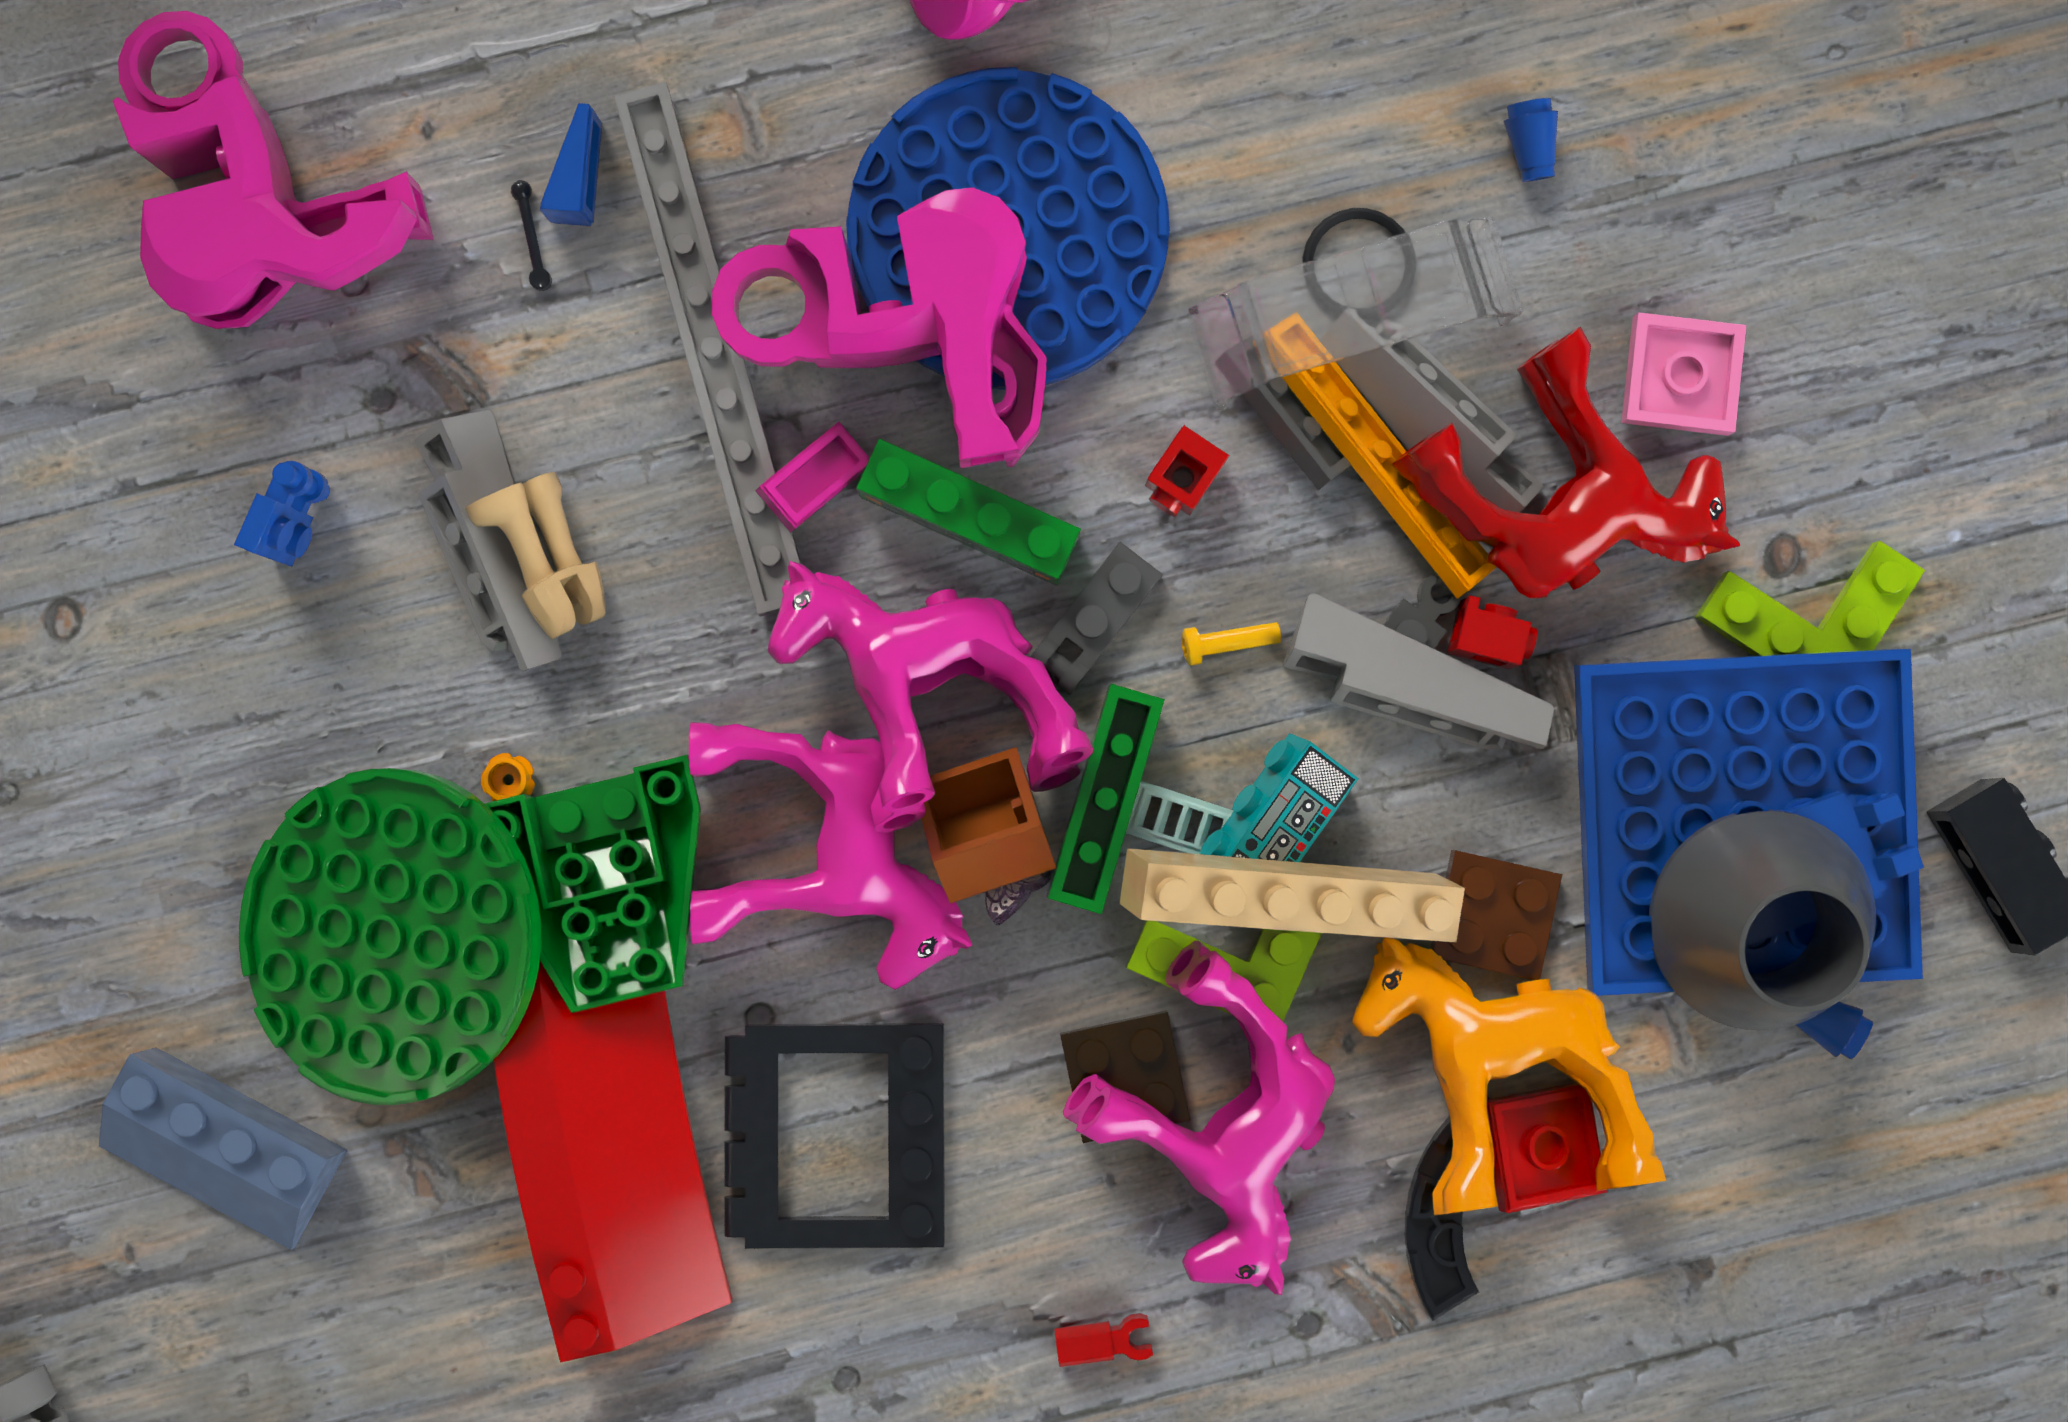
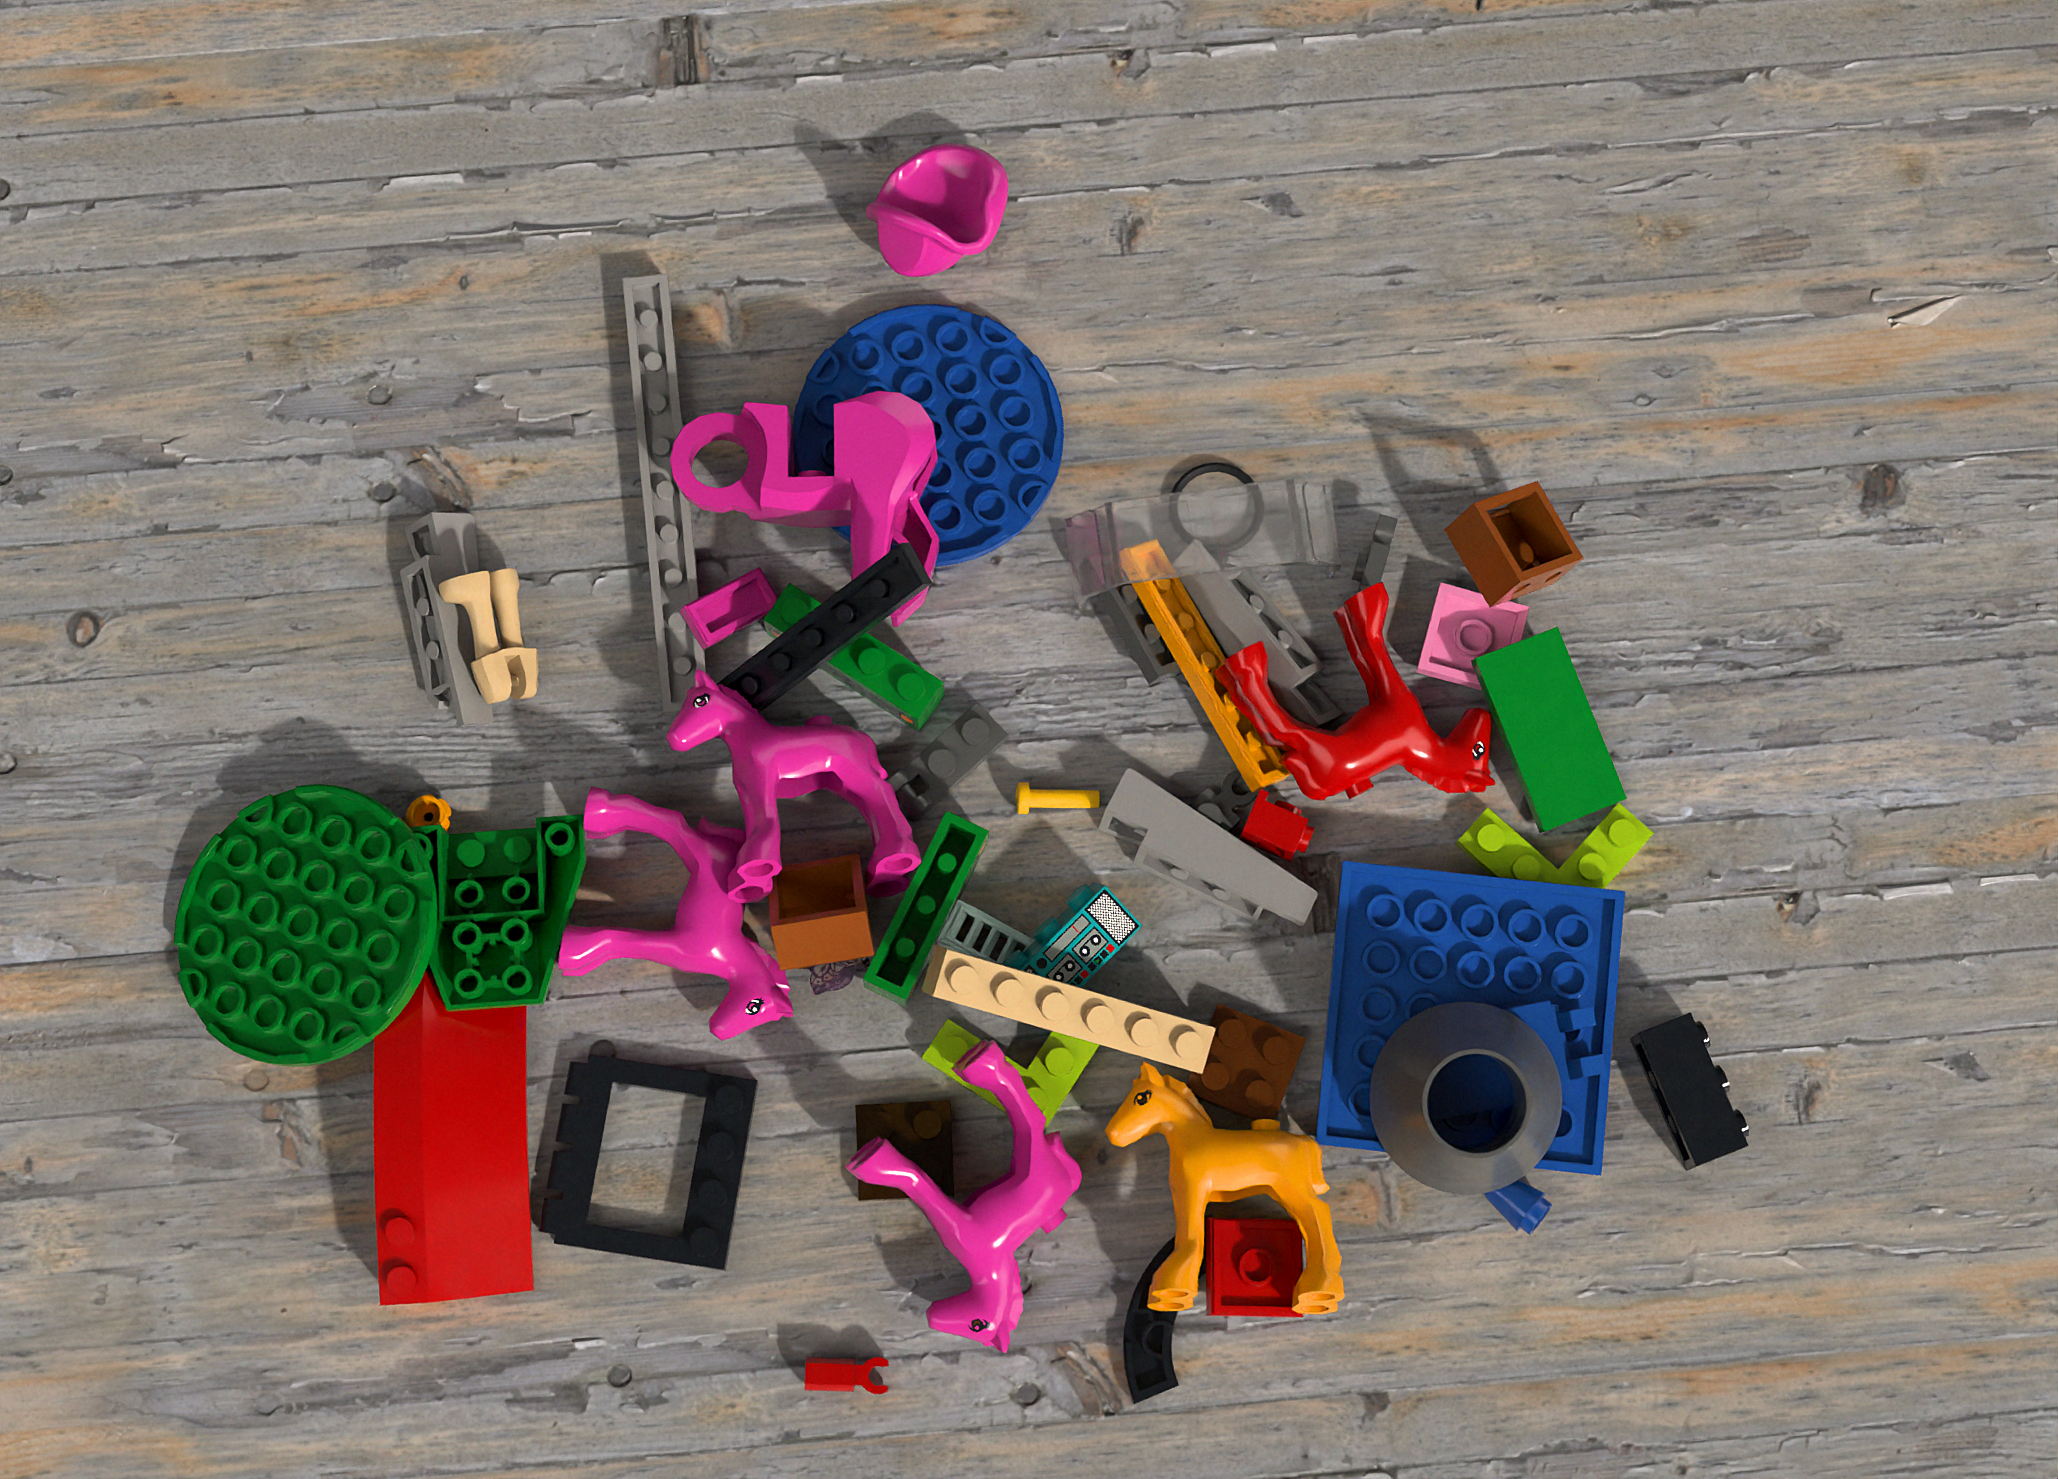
camera: 10 degrees right, 10 degrees down
(217, 1145) = (122, 1084): sand blue slope -> none
(245, 240) = (299, 344): dark pink animal -> none
(279, 521) = (281, 572): blue plate -> none
(538, 277) = (533, 413): black hinge -> none
(573, 182) = (576, 341): blue slope -> none
(941, 489) = (830, 628): none -> black tile
(1188, 453) = (1045, 638): red brick -> none
(1533, 137) = (1375, 428): blue cone -> none
(1555, 306) = (1371, 567): none -> dark grey plate
(1722, 253) = (1513, 546): none -> dark orange piece
(1789, 468) = (1548, 729): none -> green tile

